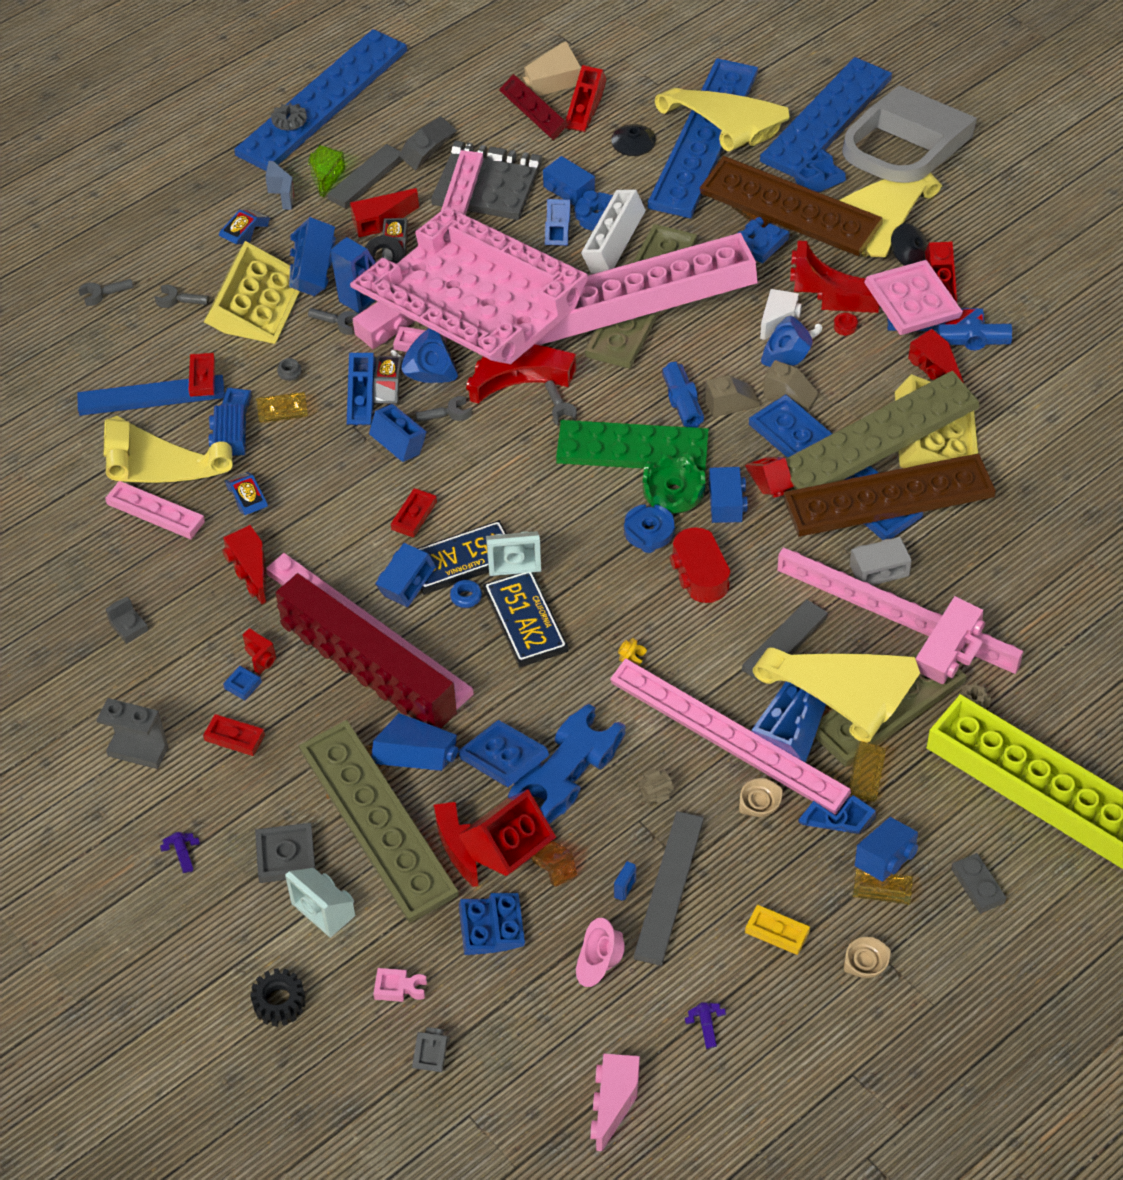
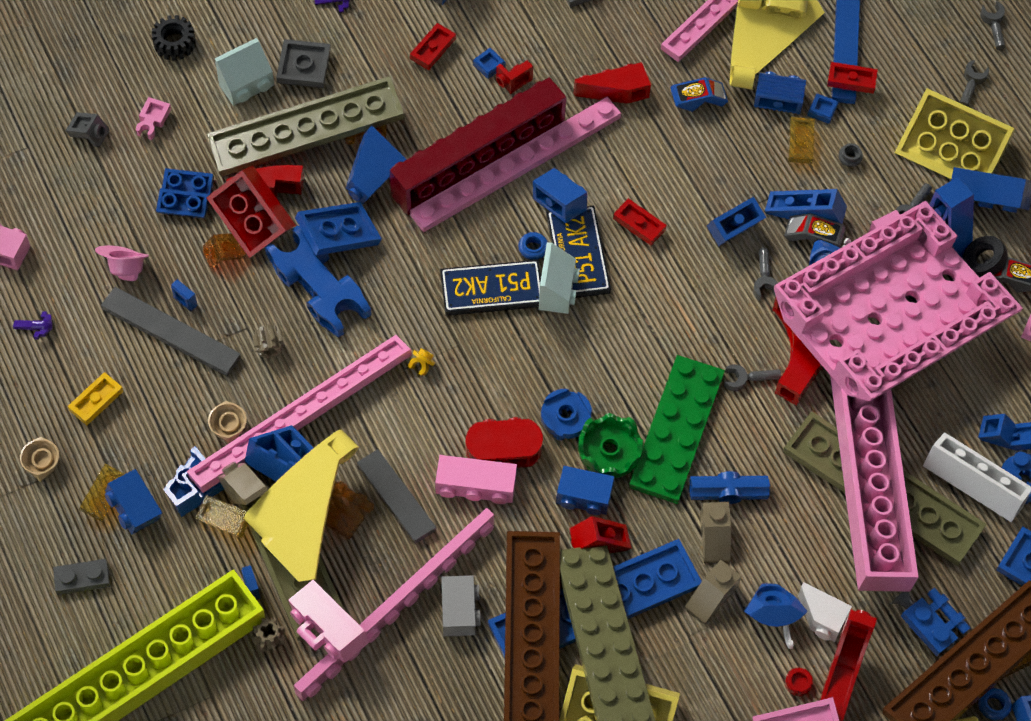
camera: 100 degrees right, 10 degrees up
(747, 578) = (475, 479): none -> bright pink brick
(838, 745) = (241, 483): none -> dark tan slope
(922, 728) = (250, 581): none -> blue tile

